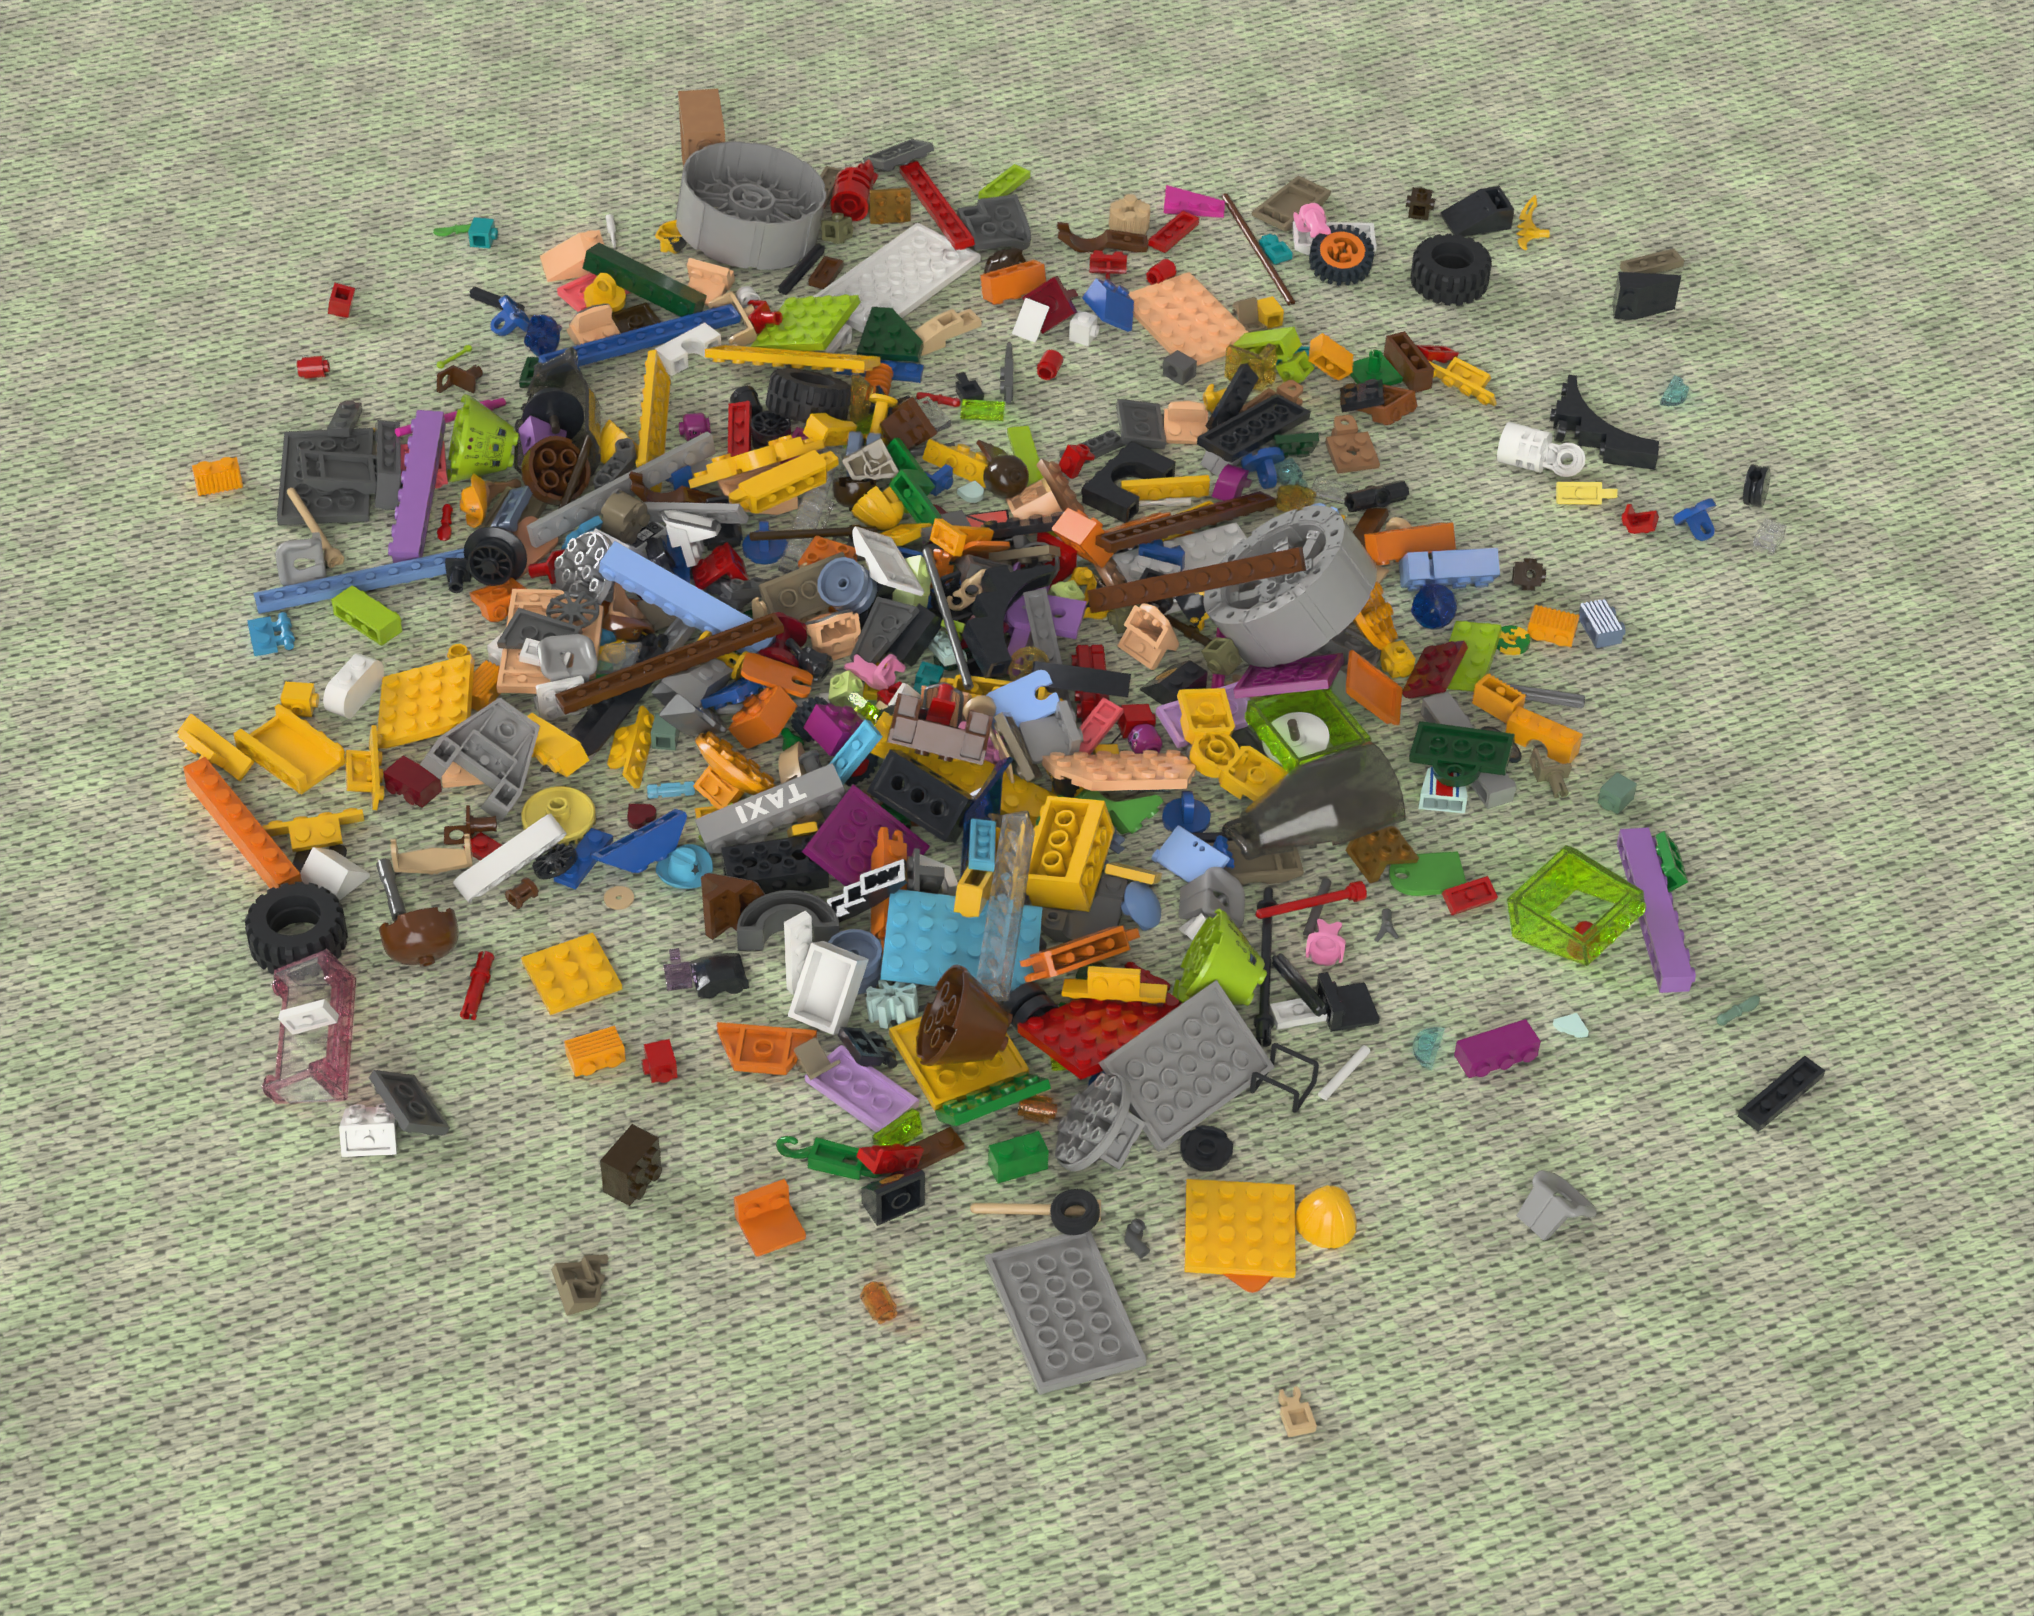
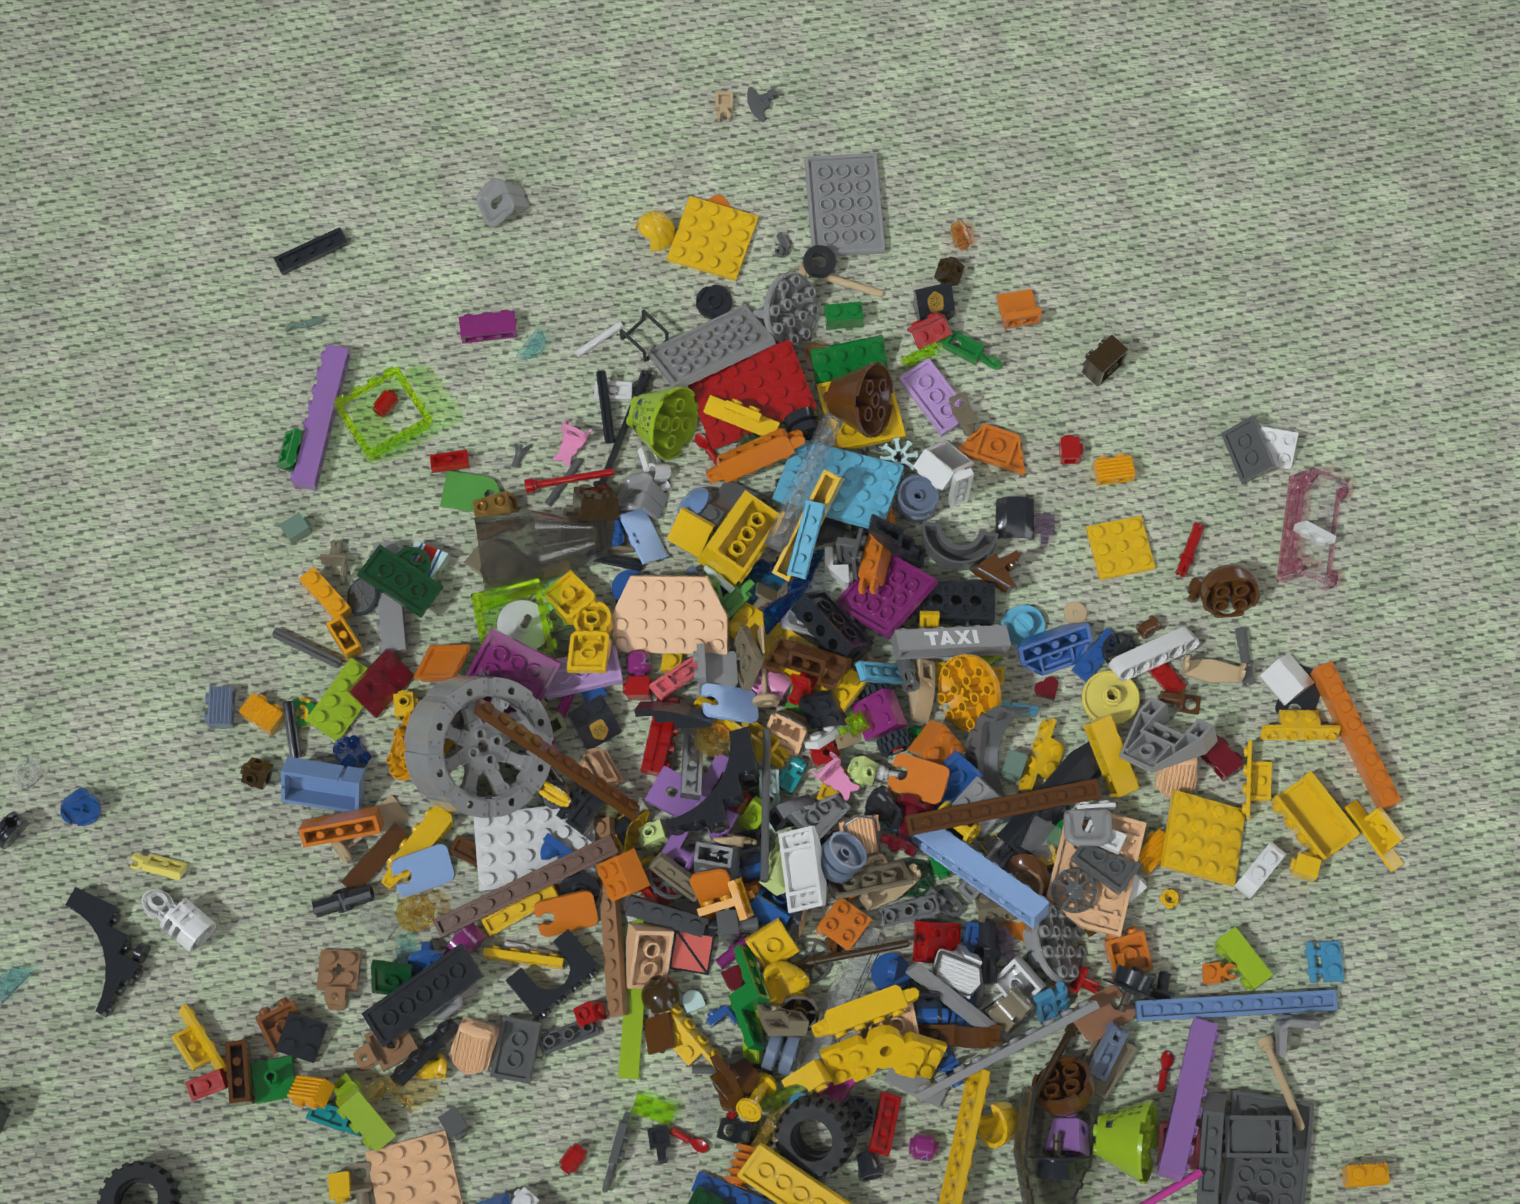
camera: 165 degrees left, 25 degrees up
(294, 905) = (1302, 637): black tyre -> none
(397, 598) = (1215, 972): none -> orange plate
(465, 946) = (1194, 589): none -> reddish brown cylinder
(478, 497) = (1137, 1078): light orange hat -> none
(584, 1291) = (1147, 289): dark tan slope -> none
(618, 465) = (1005, 1088): dark grey beam -> none
(867, 1048) = (929, 423): black plate -> none
(882, 1242) = (949, 271): none -> dark brown brick
(939, 1146) = (899, 342): reddish brown plate -> none
(1242, 1435) = (760, 103): none -> dark grey piece
(1263, 862) = (595, 503): none -> dark brown brick
(1347, 1005) = (576, 388): black bracket -> none
(1511, 617) = (291, 729): none -> black axle
(1571, 1025) = (426, 339): light aqua tile -> none
(1639, 522) = (128, 819): red bracket -> none

